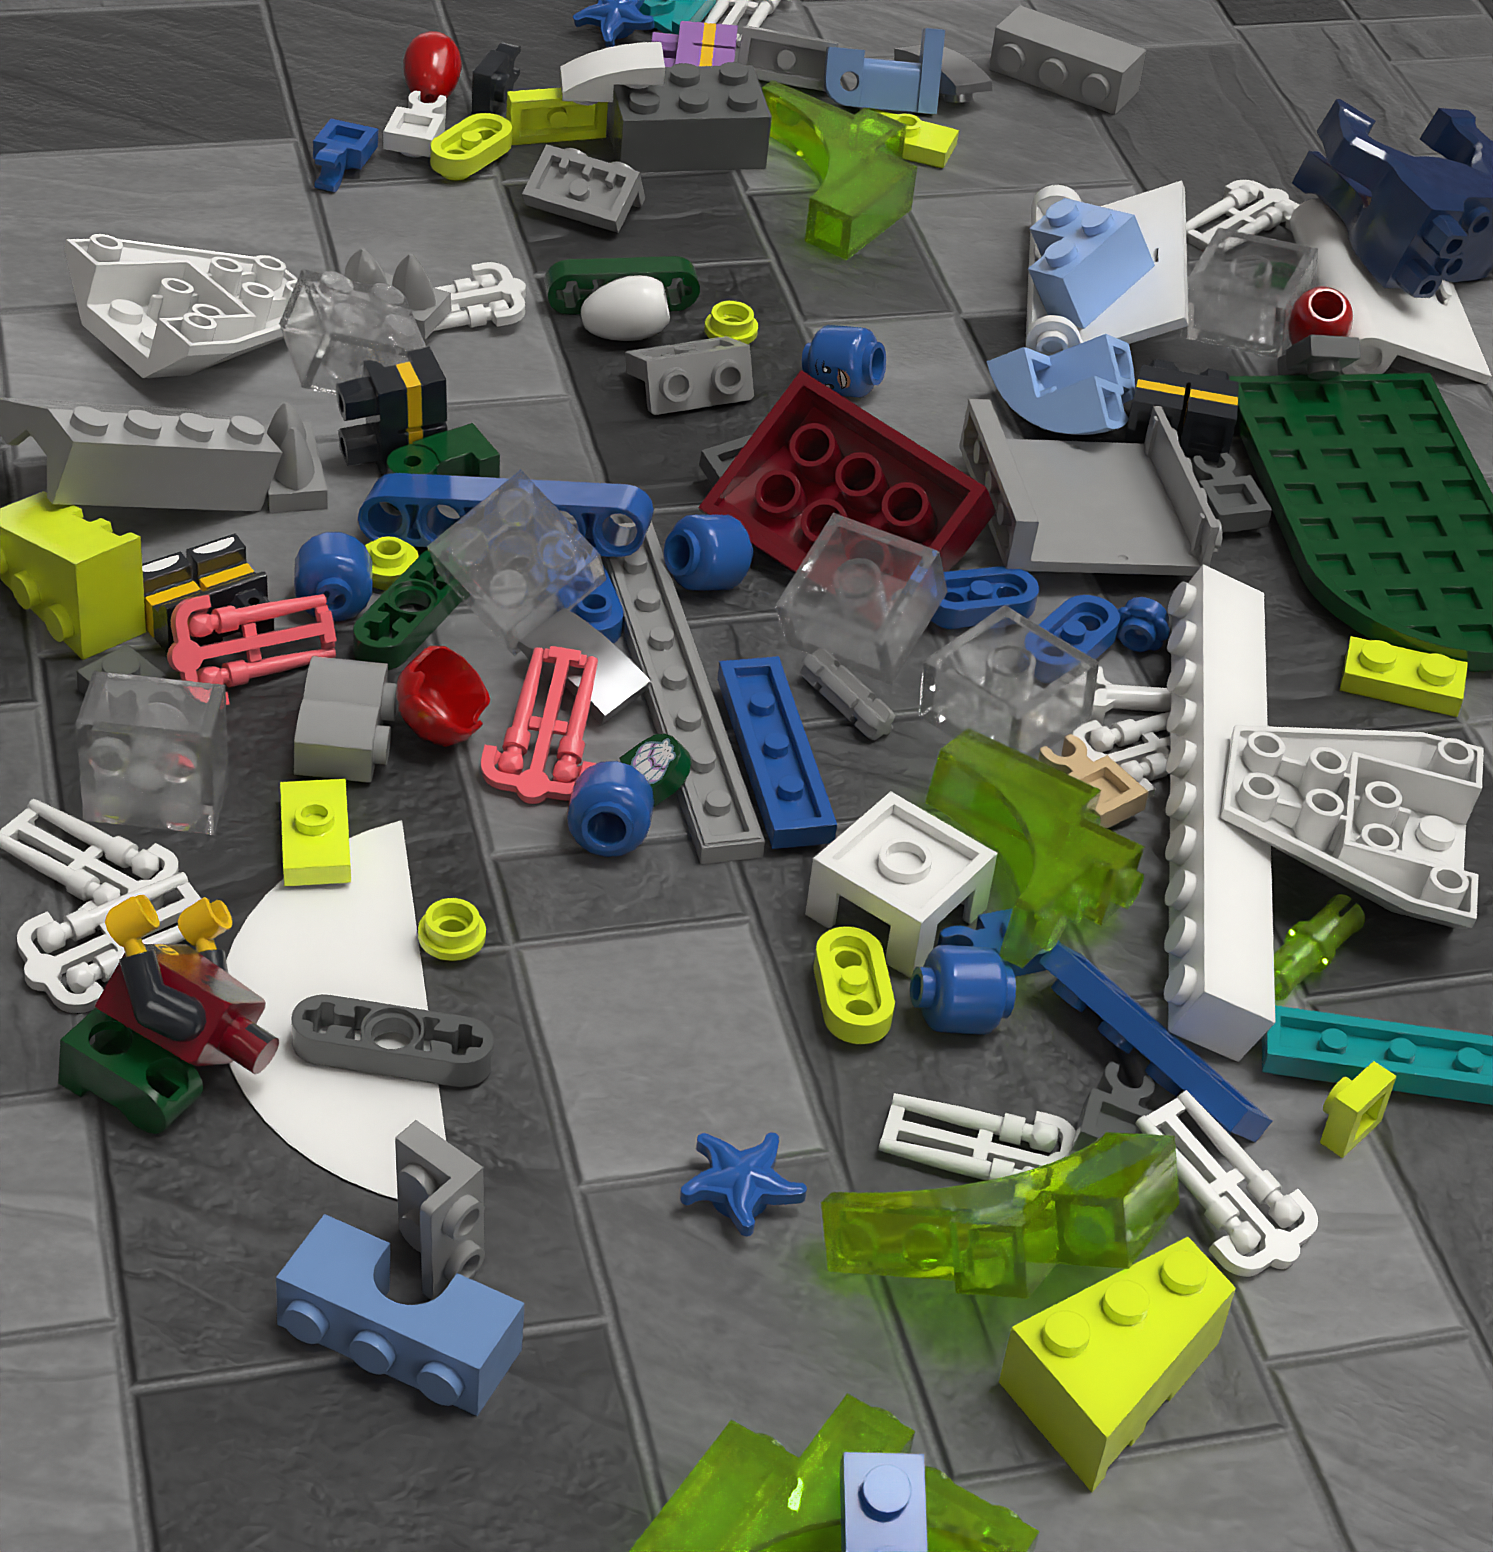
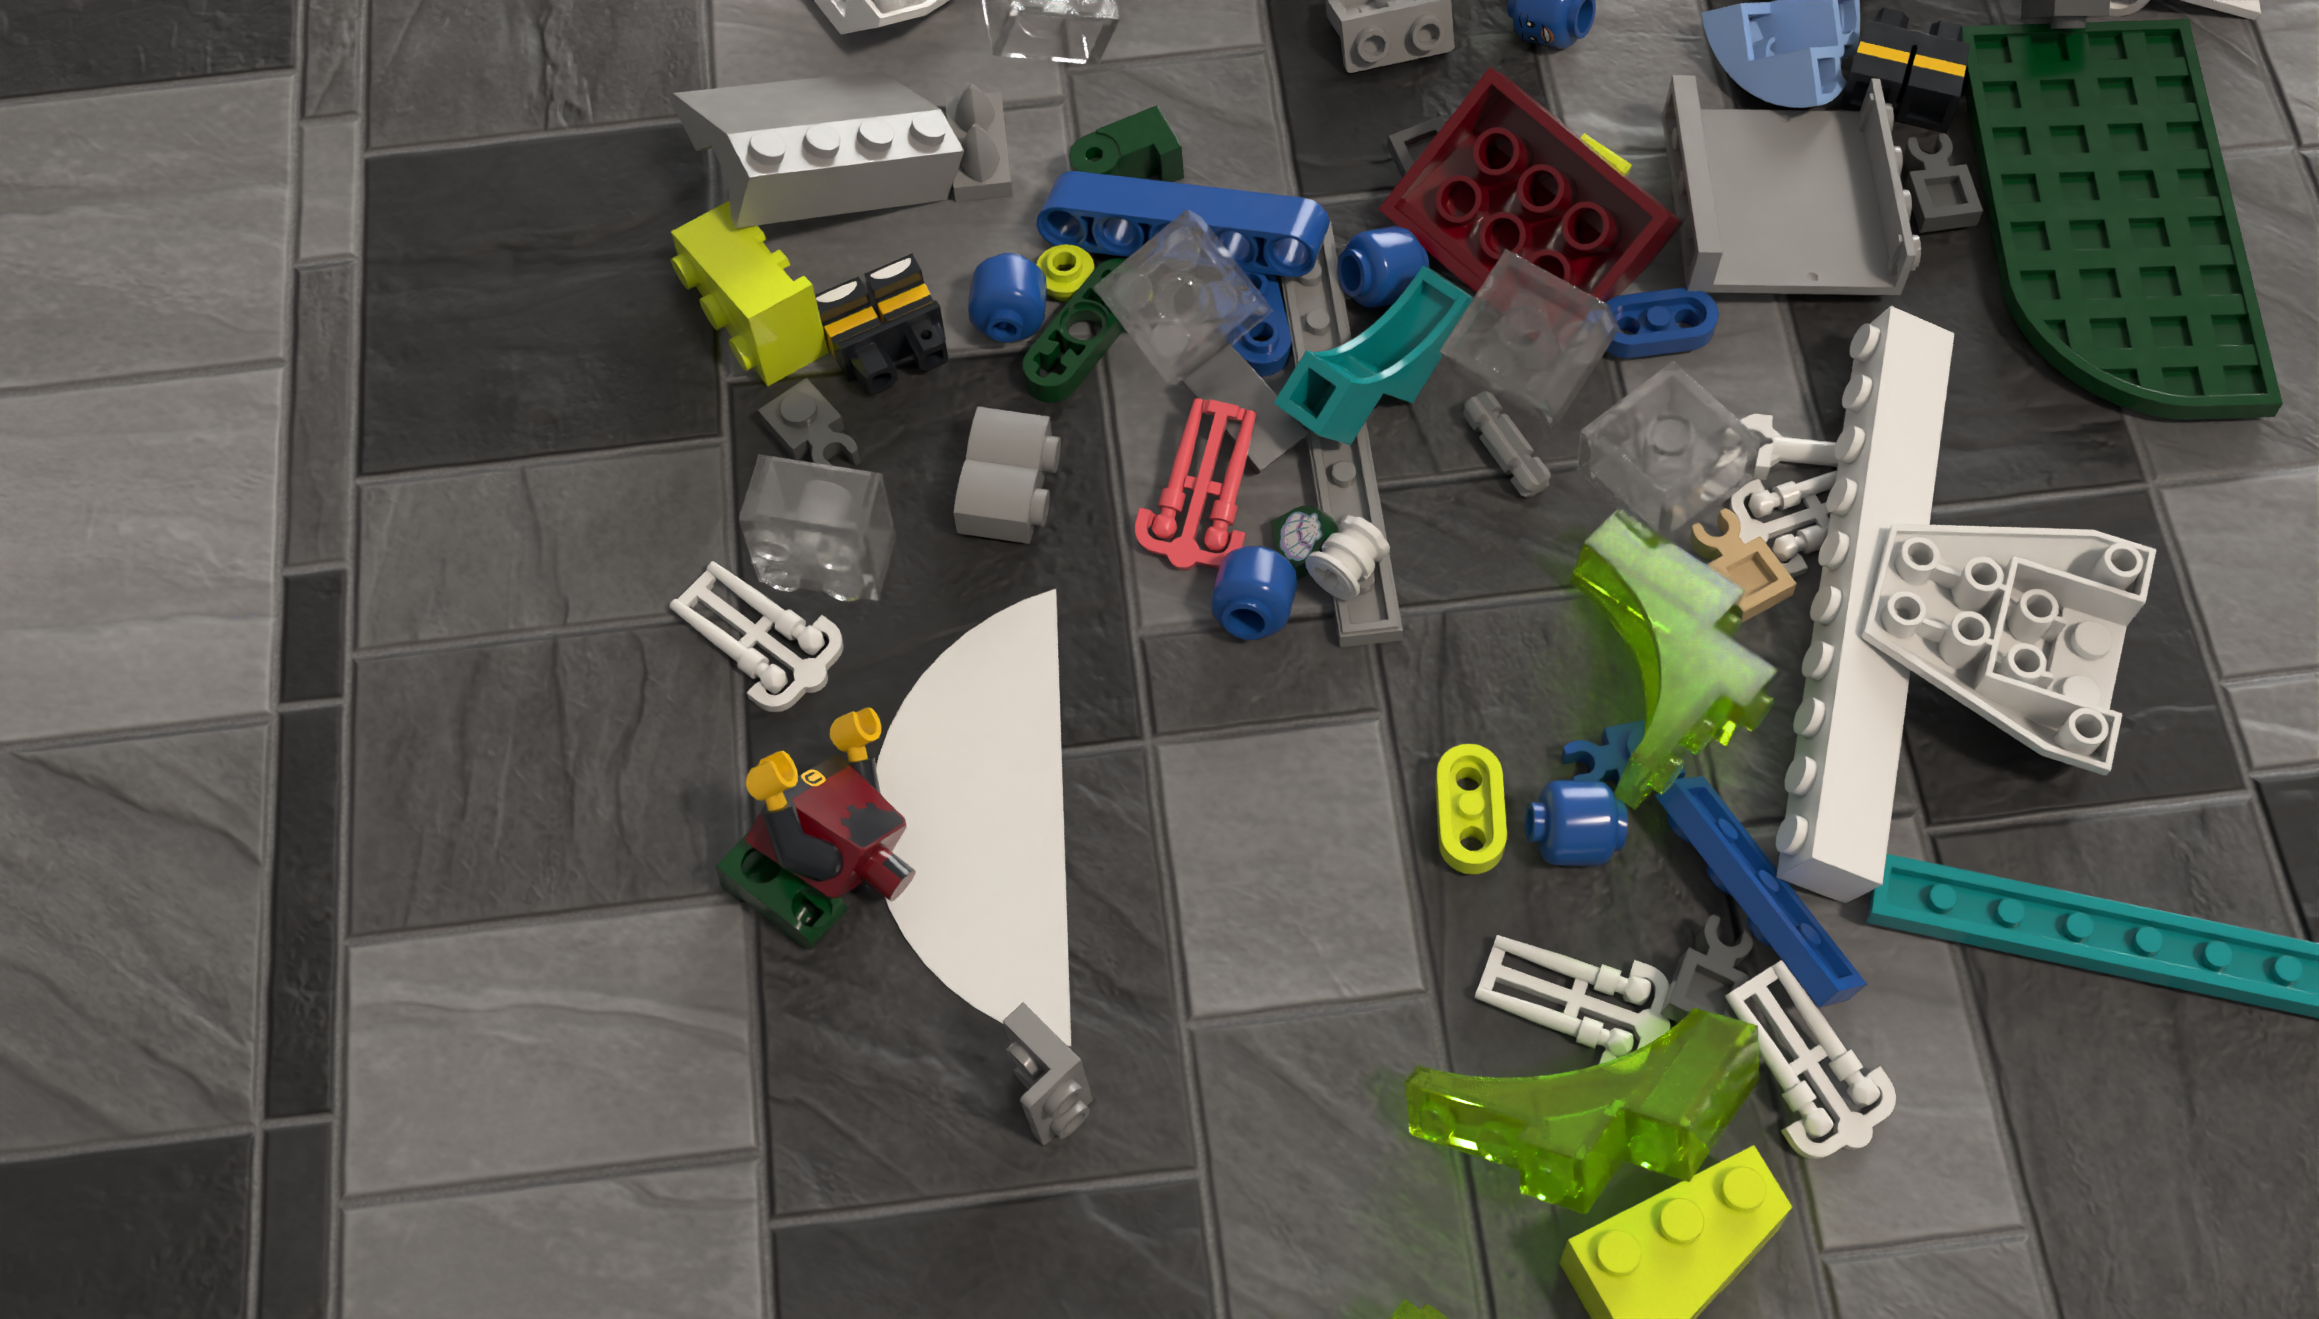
camera: 15 degrees right, 20 degrees up
(45, 971) = (714, 763): white piece -> none
(187, 656) = (859, 403): coral piece -> none
(315, 832) = (971, 607): neon yellow plate -> none
(341, 1050) = (1010, 833): dark grey beam -> none
(399, 407) = (1077, 91): black hips -> none
(441, 696) = (1100, 453): red hair -> none
(445, 1347) = (1051, 1210): medium blue arch -> none
(452, 930) = (1089, 714): neon yellow plate -> none
(704, 773) = (1347, 557): none -> white bush
(726, 616) = (1395, 356): none -> teal arch
(741, 1181) = (1337, 1033): blue animal -> none
(776, 753) = (1425, 520): blue plate -> none
(903, 872) = (1531, 688): white panel -> none
(1085, 624) = (1742, 379): blue plate -> none
(1143, 624) = (1822, 360): blue plate -> none
(1313, 943) = (1940, 774): clear neon green pin -> none
(1356, 1108) = (1951, 977): neon yellow plate -> none
(1404, 676) = (2094, 426): neon yellow plate -> none

